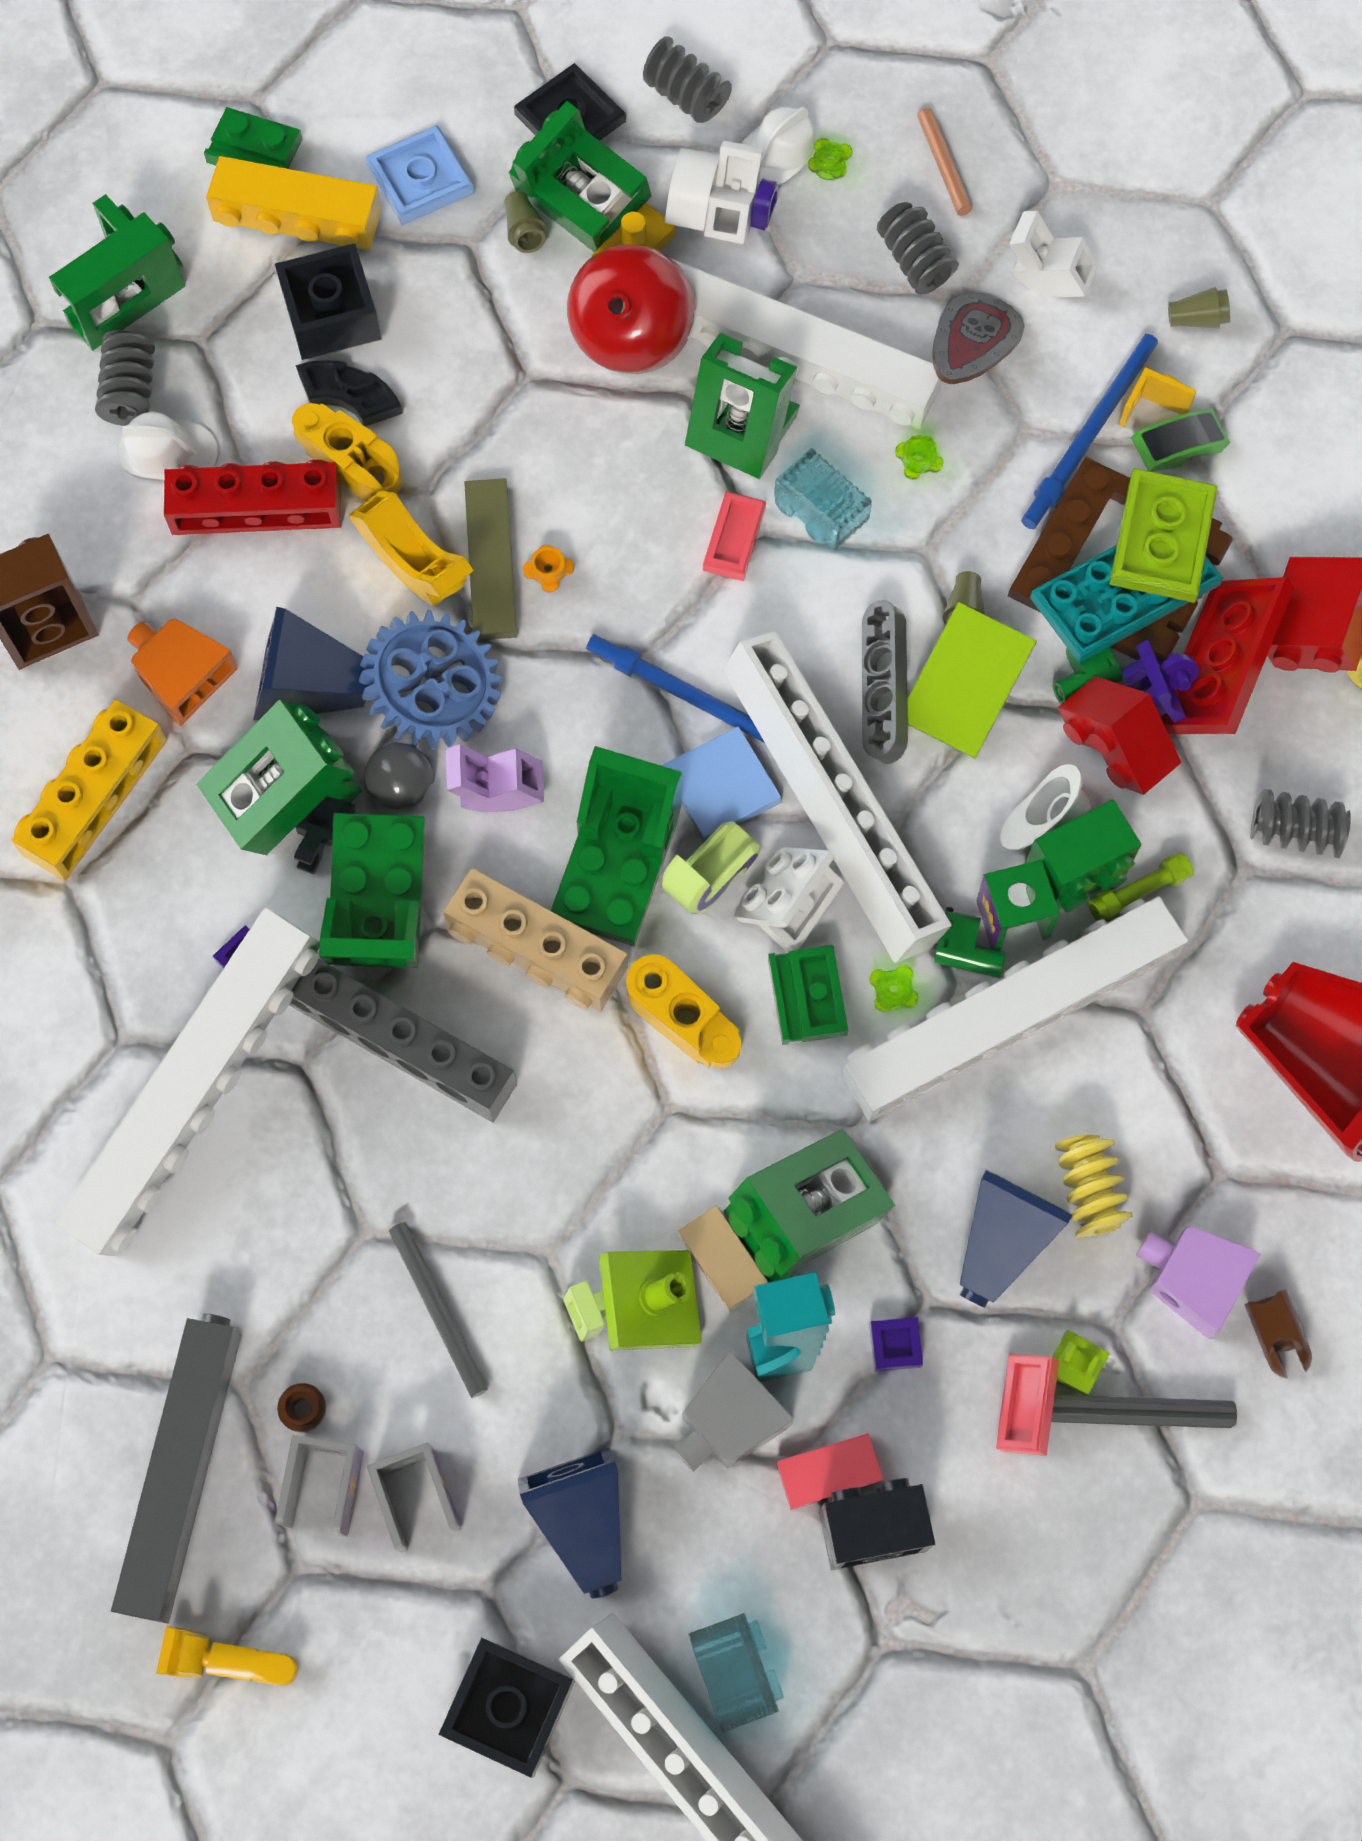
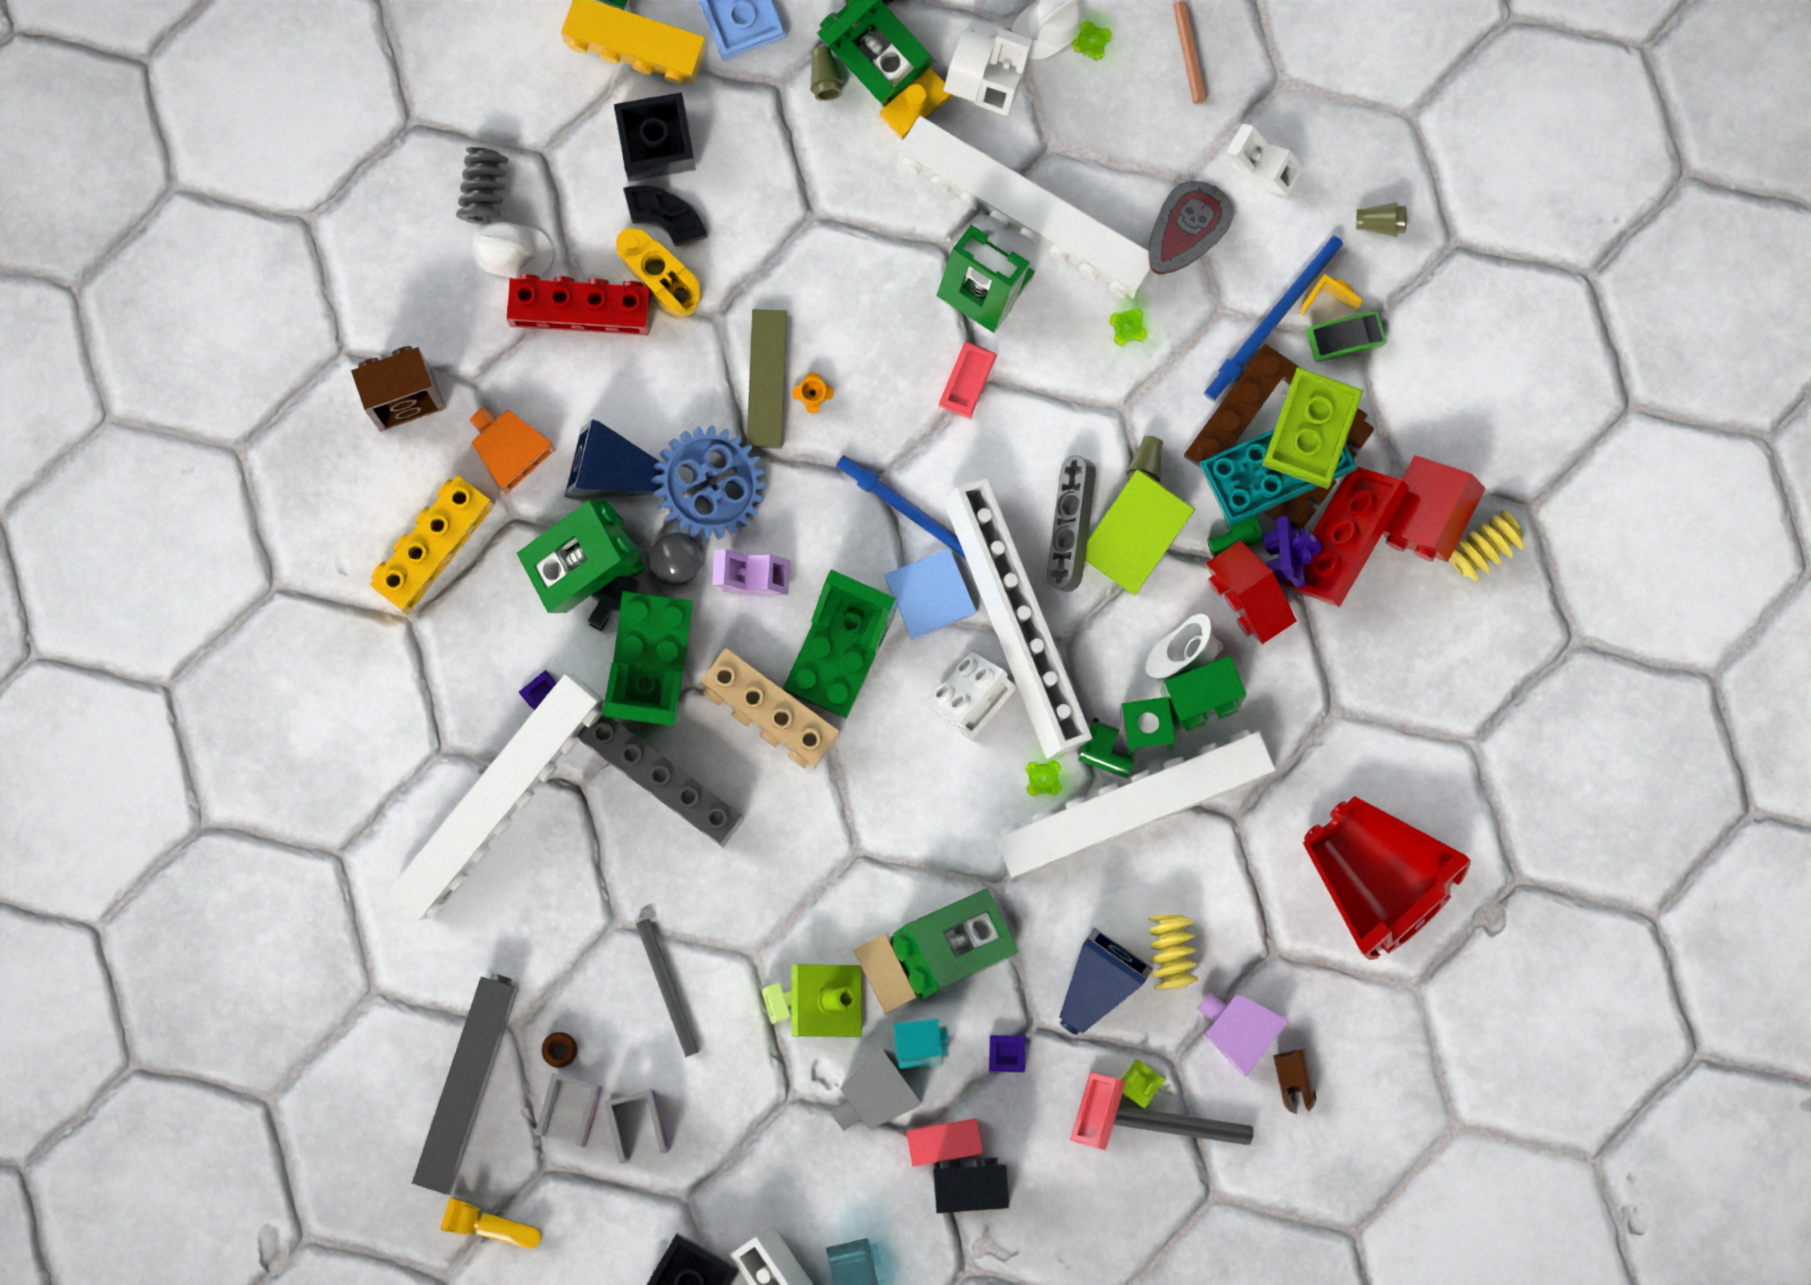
camera: 10 degrees right, 10 degrees up
(119, 275) = (486, 97): green brick -> none
(408, 550) = (702, 369): yellow arch -> none
(580, 1518) = (755, 1154): dark blue slope -> none
(655, 311) = (920, 166): red cylinder -> none
(709, 1039) = (898, 801): yellow piece -> none
(711, 868) = (913, 666): yellowish green animal -> none
(764, 203) = (1030, 78): dark purple tile -> none
(808, 994) = (976, 776): green plate -> none
(821, 500) = (1041, 359): clear light blue brick -> none
(917, 247) = (1151, 138): dark grey piece -> none
(1171, 871) = (1277, 707): lime bar -> none
(1301, 822) = (1384, 681): dark grey piece -> none

